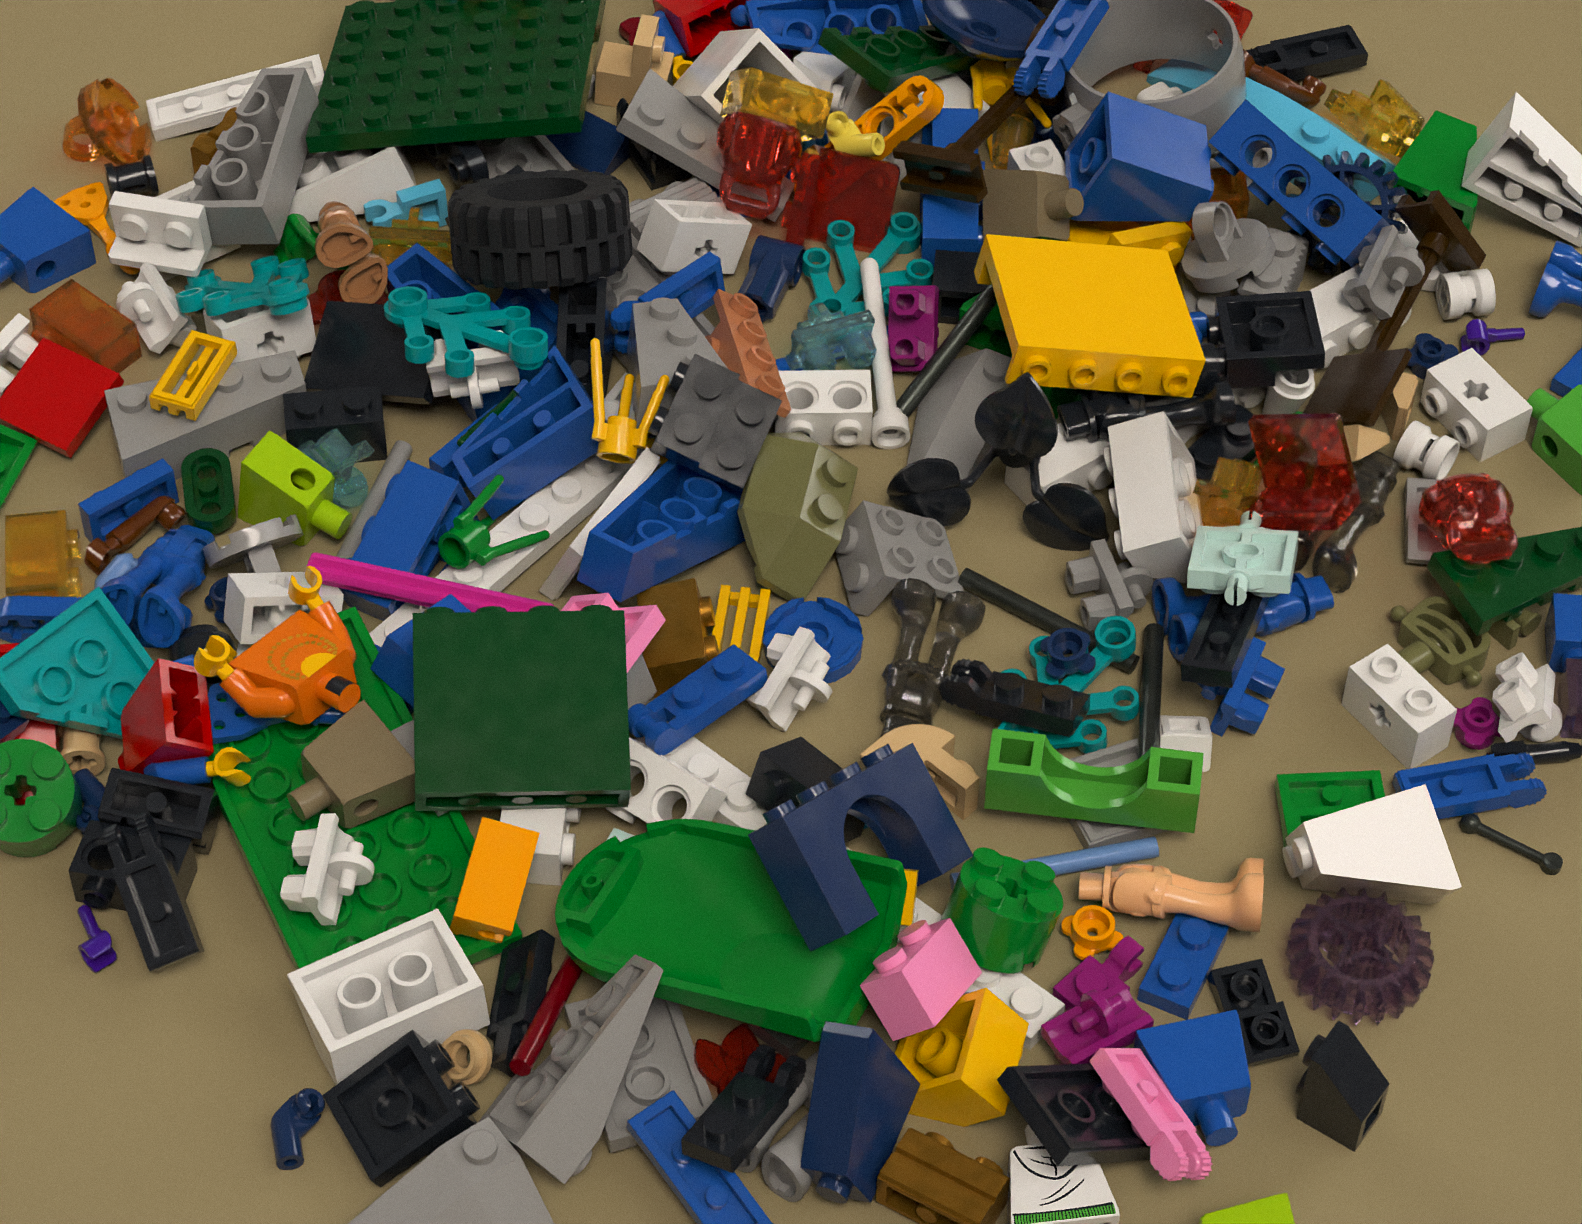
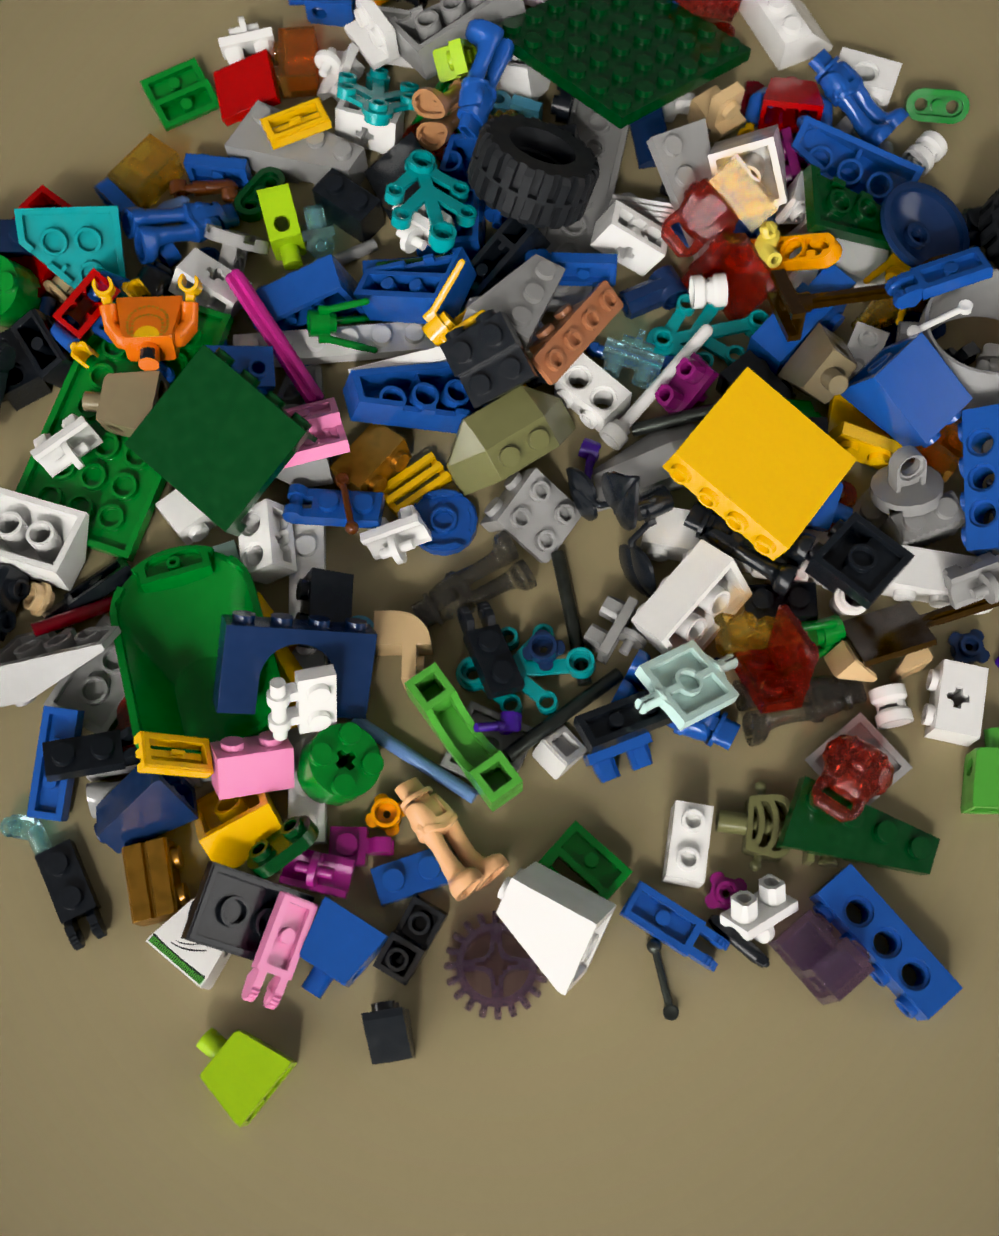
camera: 50 degrees right, 20 degrees up
(311, 190) = (454, 60): none -> lime slope
(350, 153) = (478, 88): none -> blue piece
(494, 881) = (126, 519): light orange hinge -> none
(681, 663) = (342, 481): none -> reddish brown hinge
(828, 230) = (709, 291): none -> white wheel
(845, 1003) = (175, 761): none -> yellow tile
(883, 461) = (589, 451): none -> dark purple hand
(923, 850) = (315, 701): none -> white plate
(1042, 1019) = (282, 847): none -> dark green plate
(1110, 745) = (509, 722): none -> dark purple hand
(1111, 53) = (964, 307): none -> white hinge

